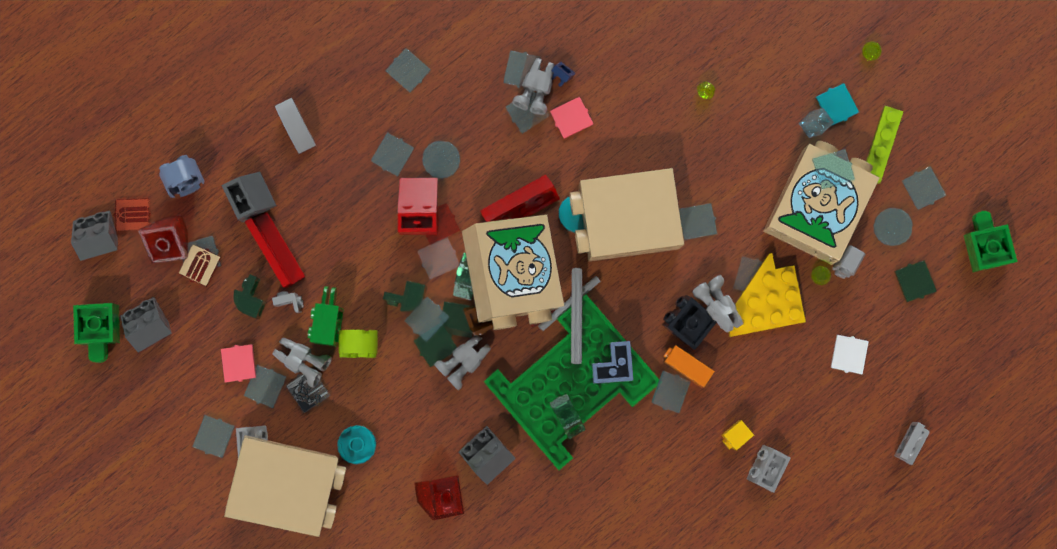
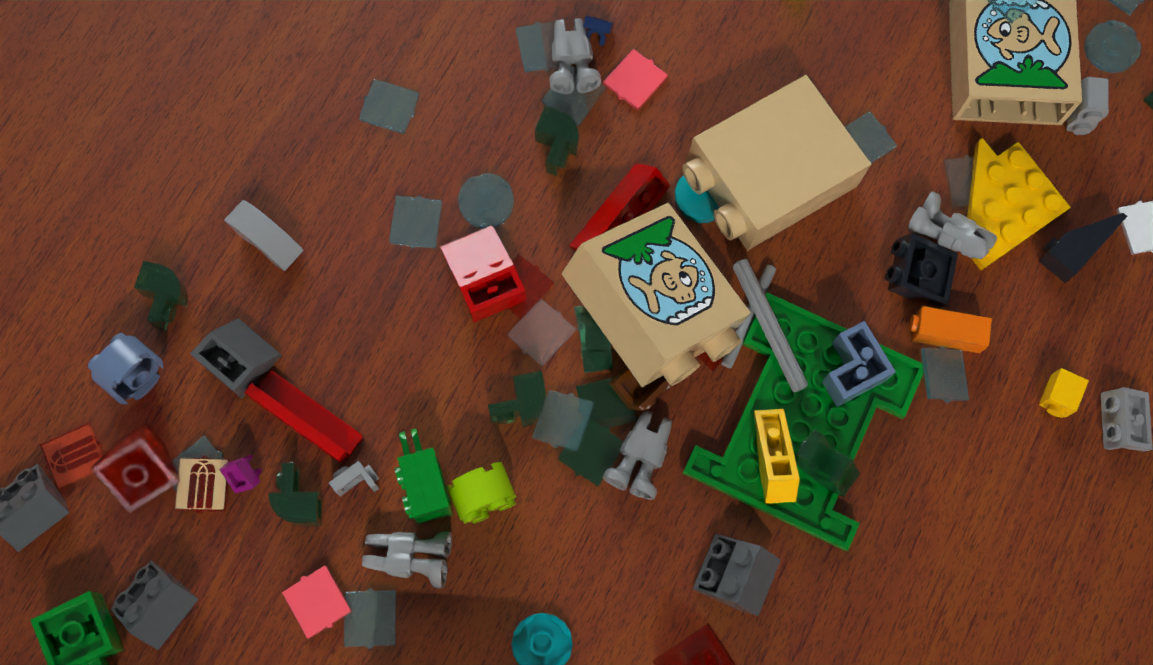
camera: 30 degrees left, 10 degrees down
(223, 270) = (240, 474): none -> magenta tile
(224, 134) = (166, 290): none -> clear green brick
(305, 395) = (434, 604): piece -> none
(506, 137) = (561, 134): none -> clear green brick
(540, 396) = (776, 457): none -> yellow slope
(792, 349) = (1076, 247): none -> black slope
(820, 275) = (1057, 141): clear neon green plate -> none

